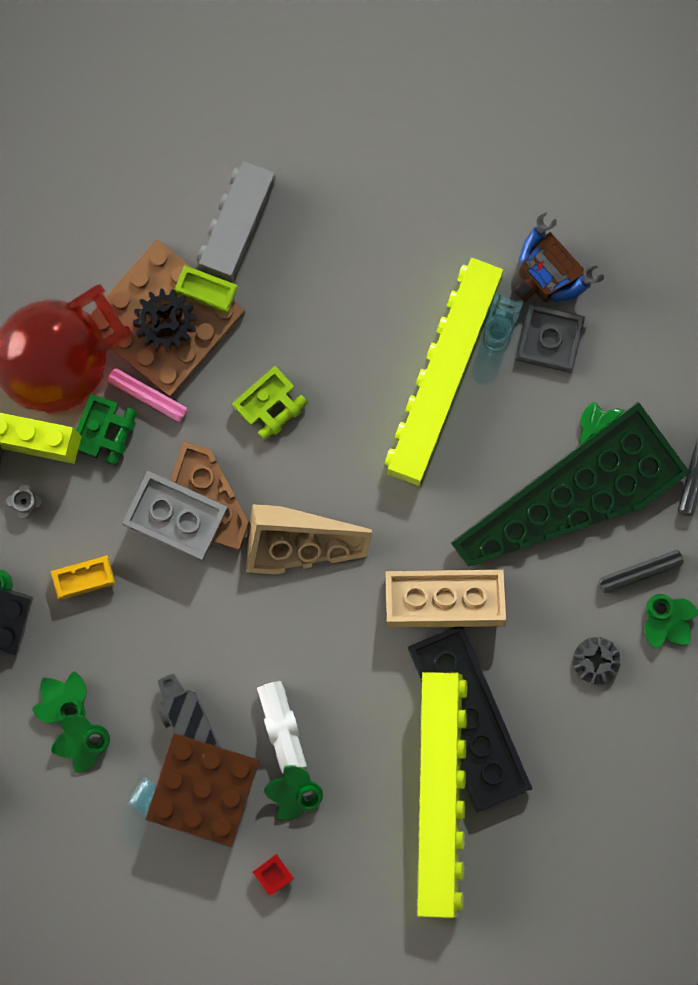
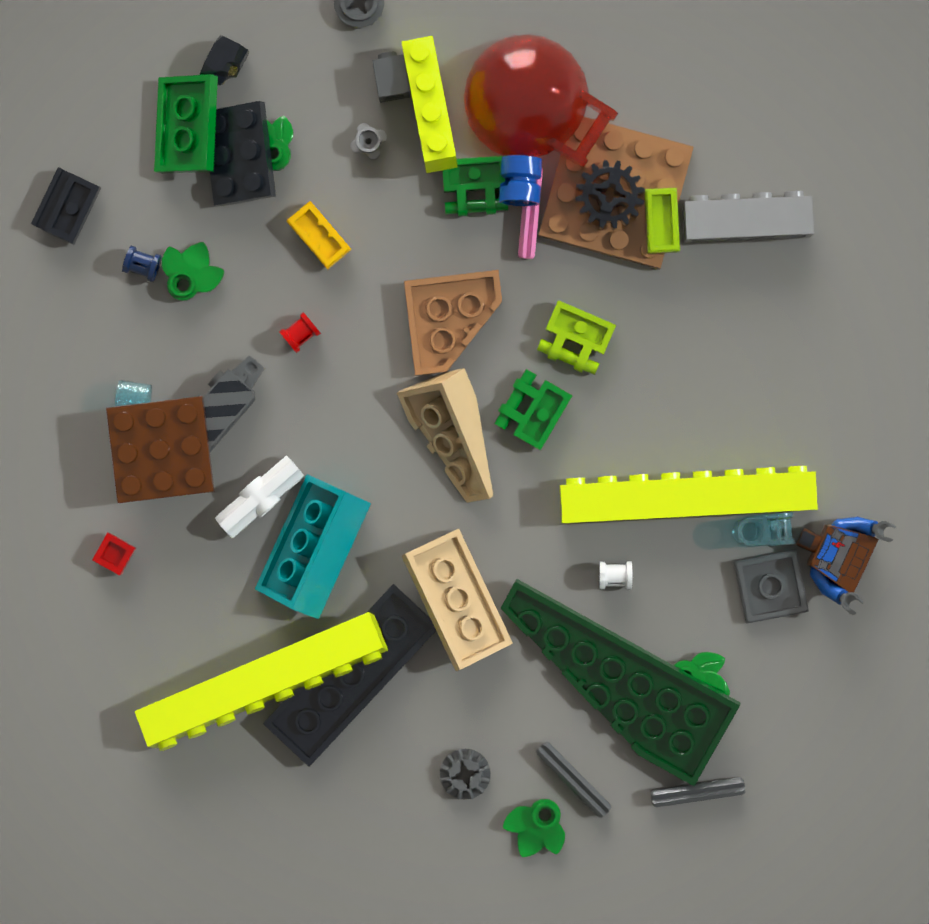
camera: 65 degrees right, 10 degrees up
(31, 734) = (141, 263): none -> dark blue bush
(76, 744) = (155, 305): green plate -> none
(116, 386) = (520, 180): none -> blue wheel
(157, 630) = (299, 332): none -> red bush
(175, 516) = (417, 297): light grey plate -> none
(290, 791) = (201, 538): green plate -> none
(322, 461) = (541, 415): none -> green plate
(344, 701) = (312, 546): none -> teal slope
(484, 459) = (615, 575): none -> white bush

